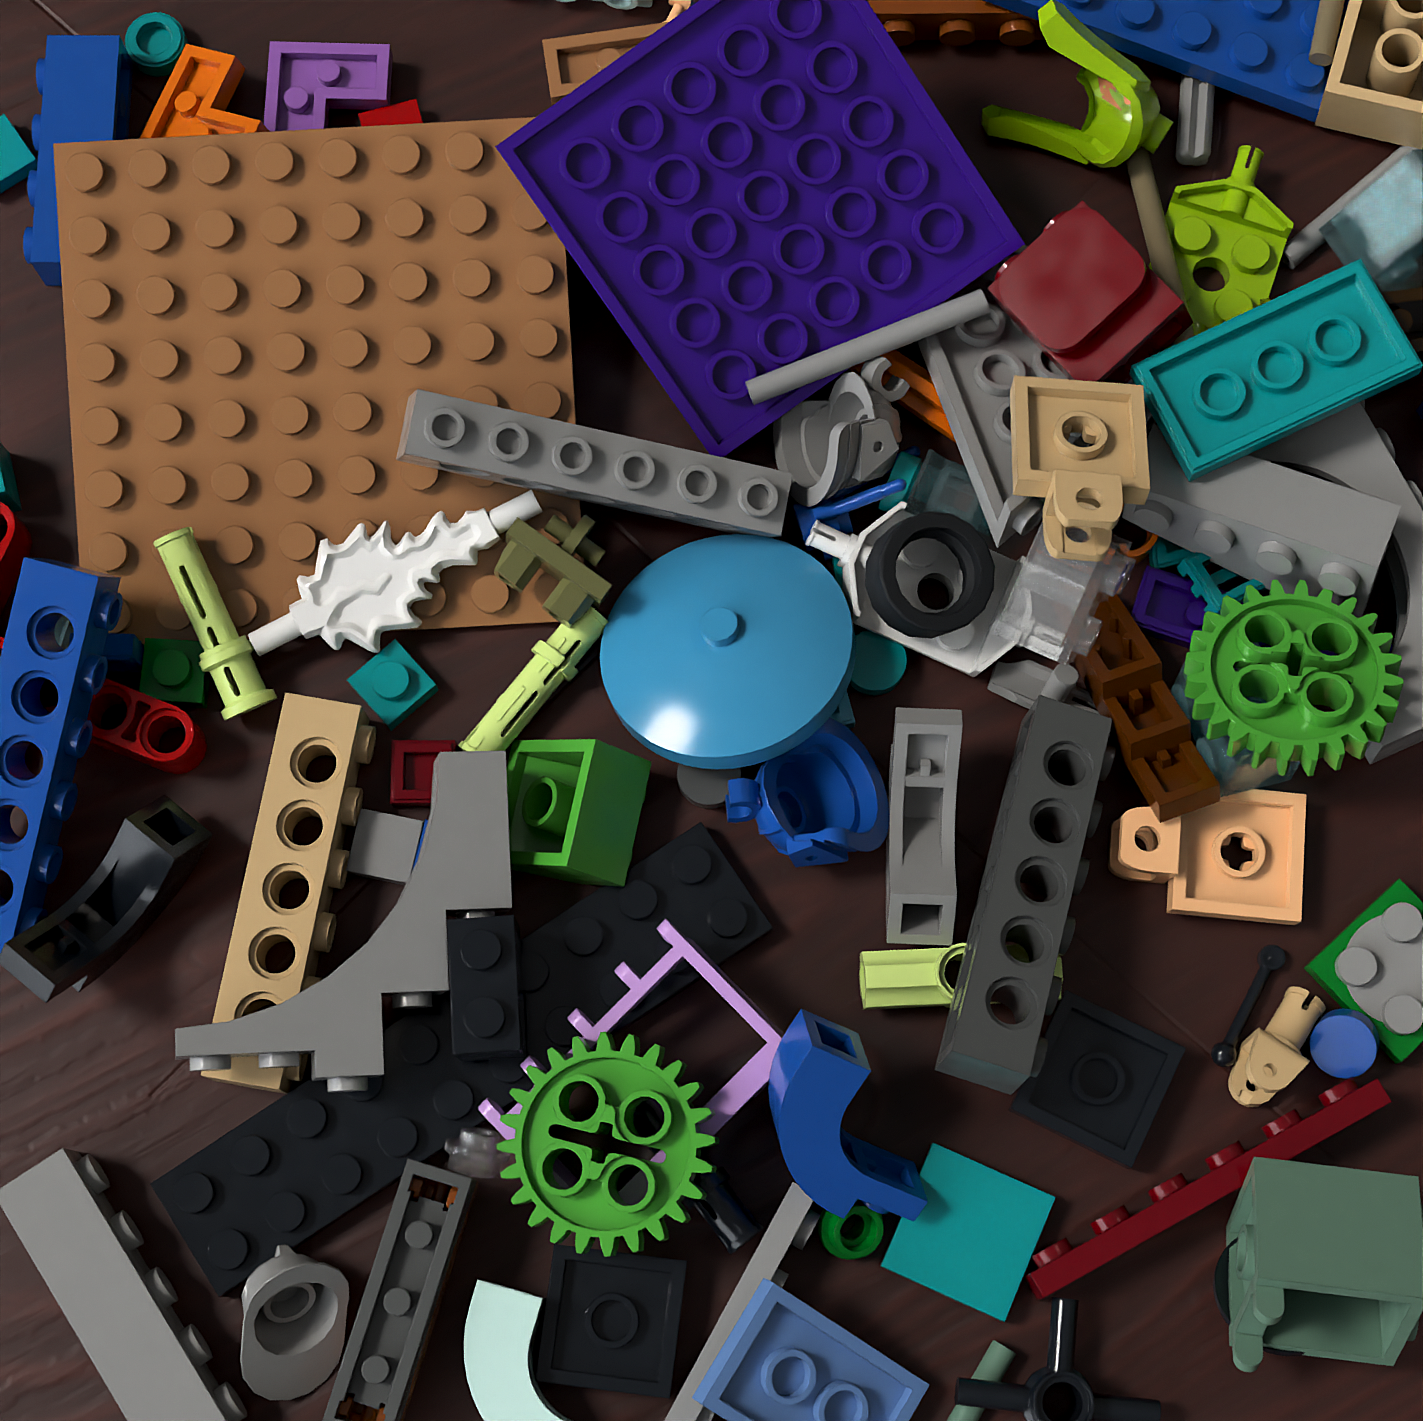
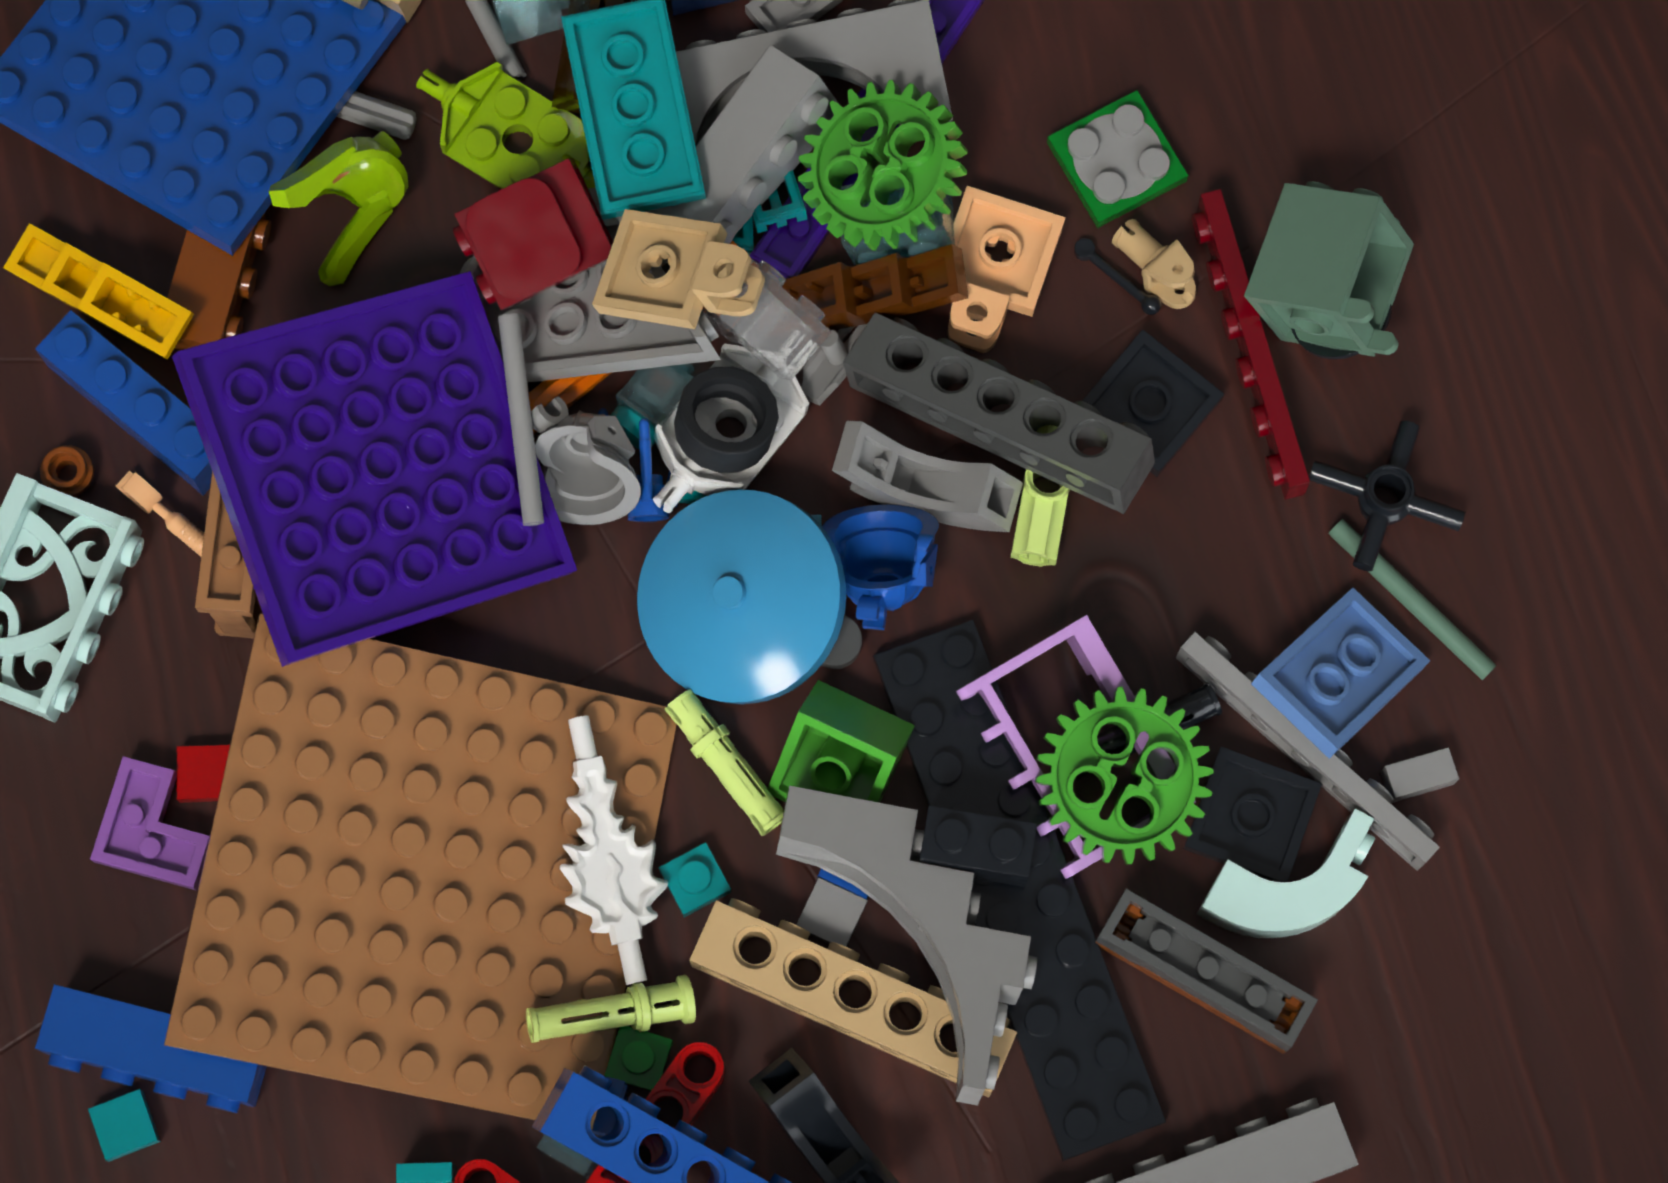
camera: 80 degrees left, 0 degrees up
(155, 43) = (55, 962): teal tile -> none
(198, 96) = (140, 946): orange plate -> none
(292, 1324) = (1200, 1061): light grey piece -> none
(413, 770) = (773, 874): dark red tile -> none
(476, 1153) = (1099, 891): clear plate -> none
(530, 551) = (623, 730): olive hips -> none
(592, 465) = (566, 663): light grey brick -> none
(809, 1089) = (1128, 615): blue arch -> none
(856, 1242) = (1221, 616): green plate -> none
(877, 664) = (779, 480): teal tile -> none
(970, 1234) = (1243, 531): teal tile -> none
(1155, 227) = (480, 170): dark tan piece -> none
(1344, 1043) = (1165, 212): blue tile -> none

